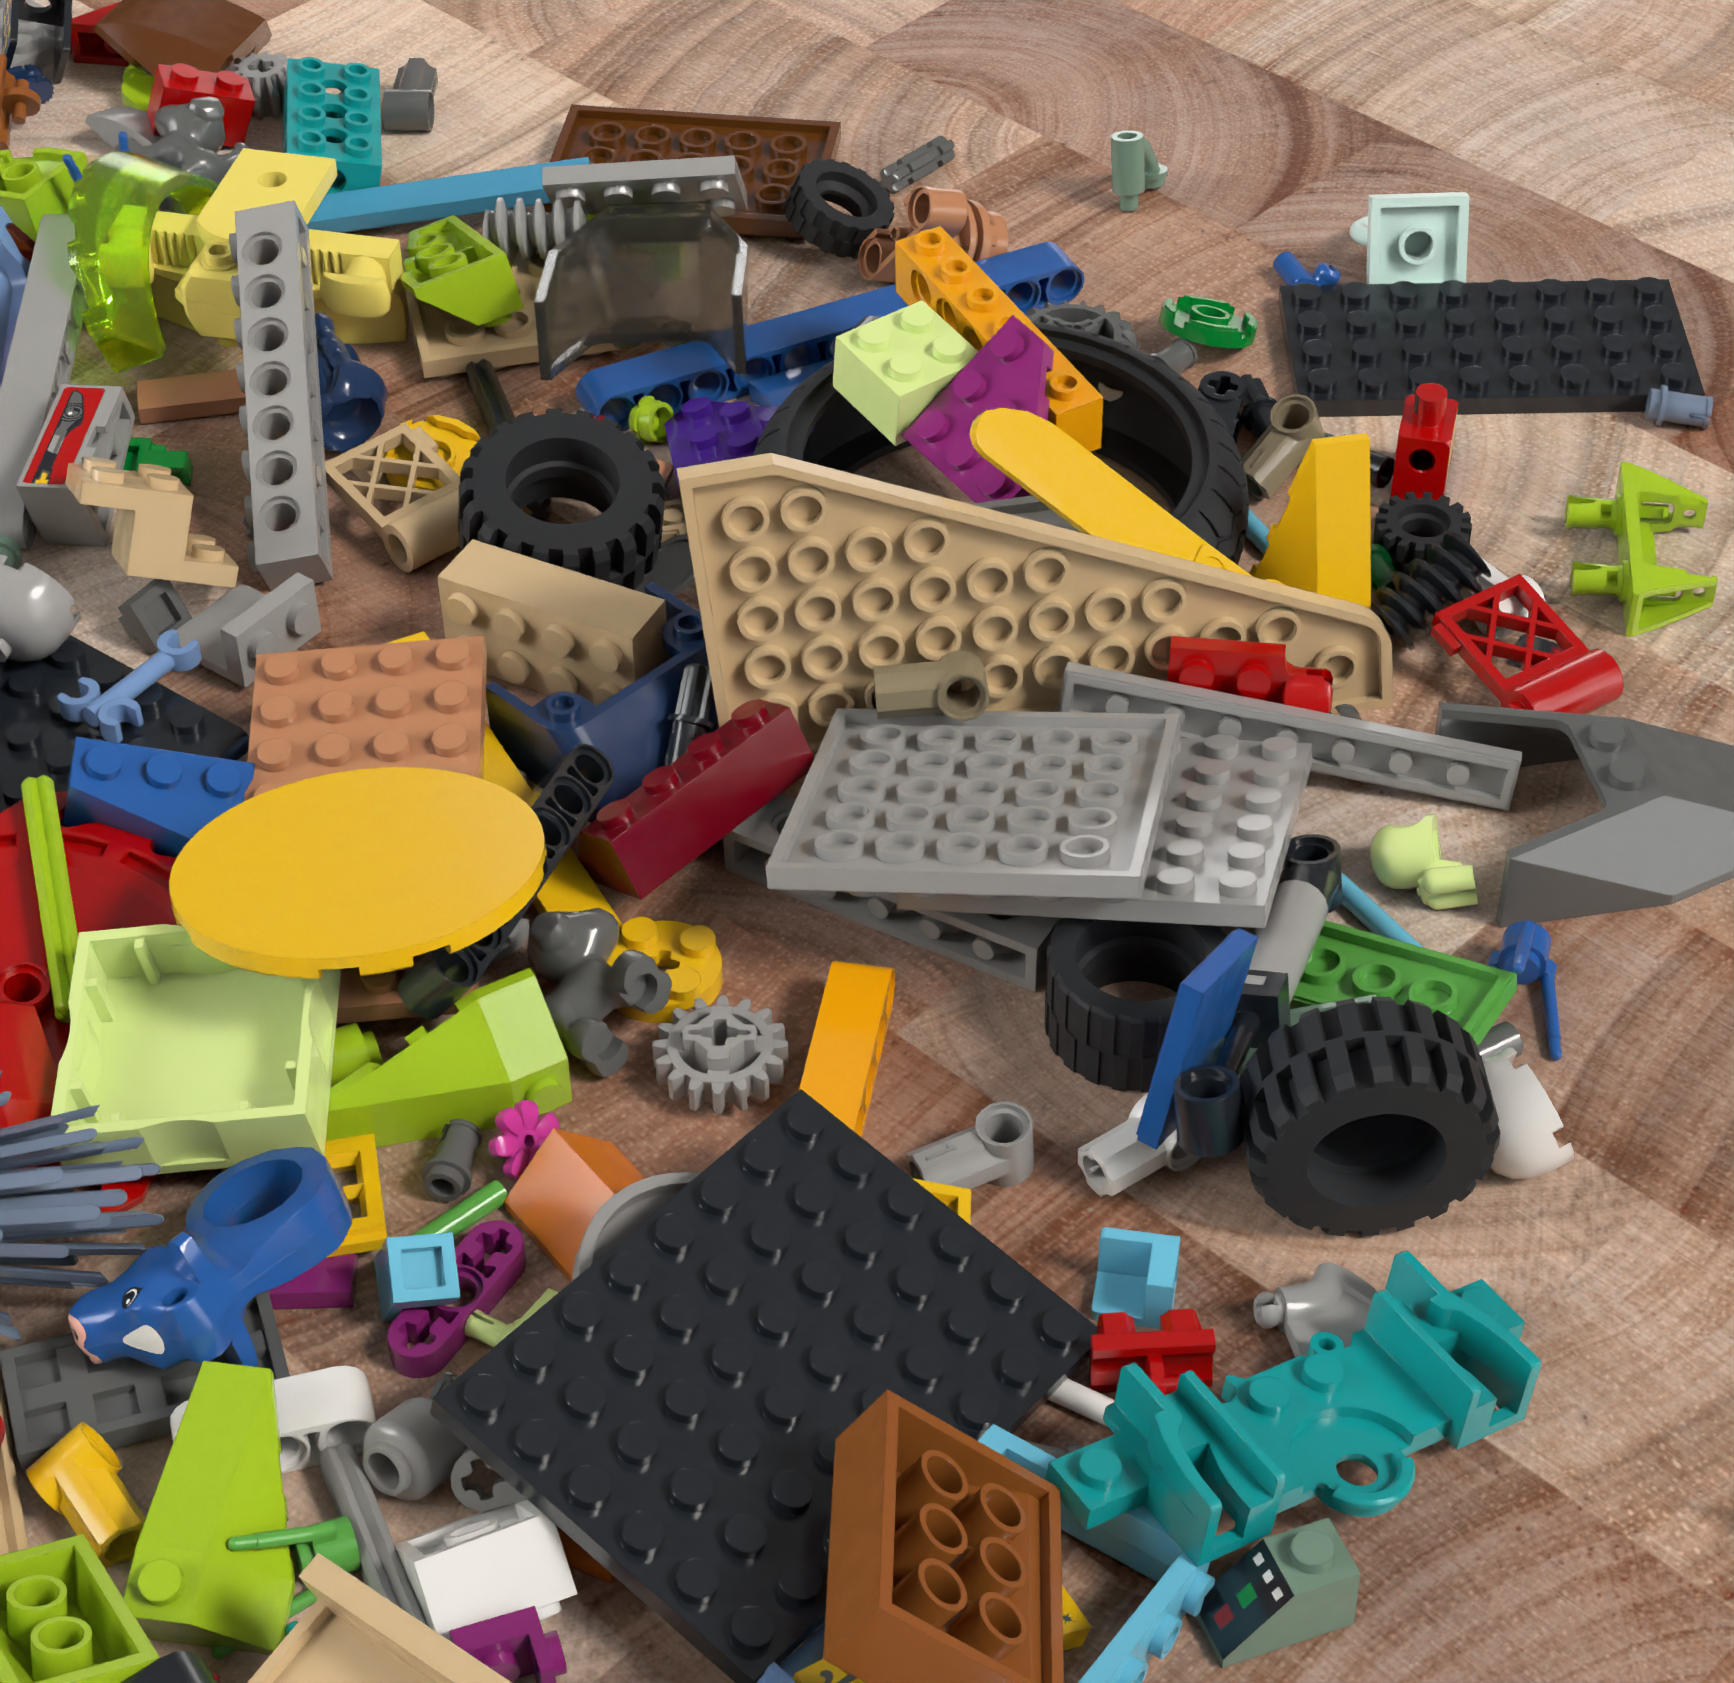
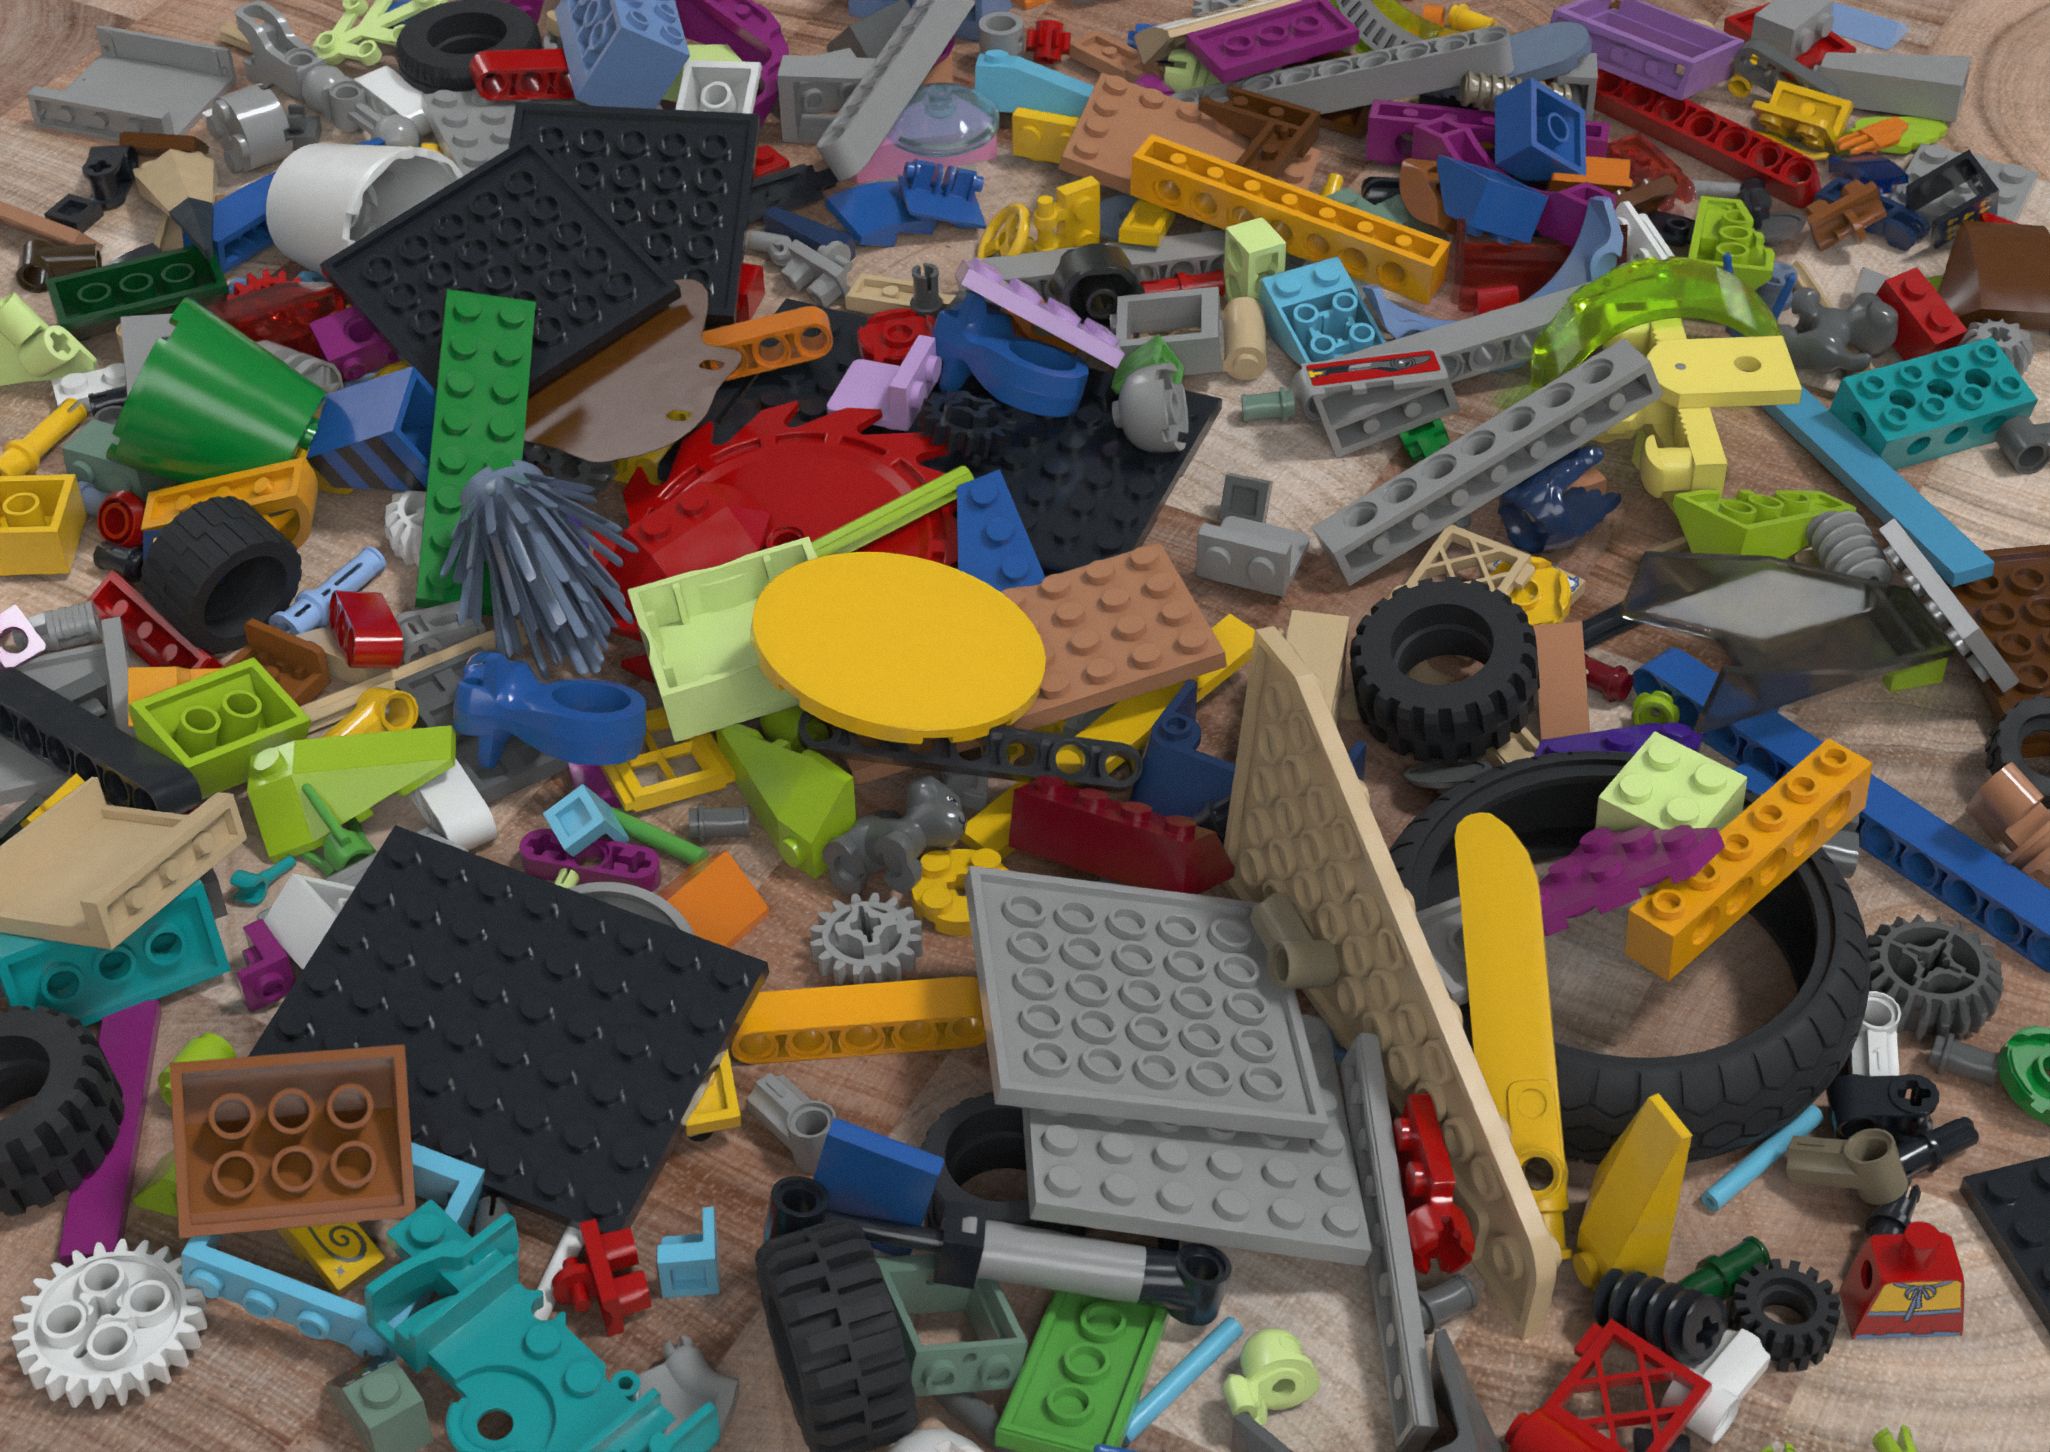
camera: 75 degrees right, 0 degrees up
(117, 703) = (1100, 490): medium blue bar -> none
(151, 523) = (1300, 447): tan bracket -> none
(520, 1136) = (744, 848): dark pink plant -> none

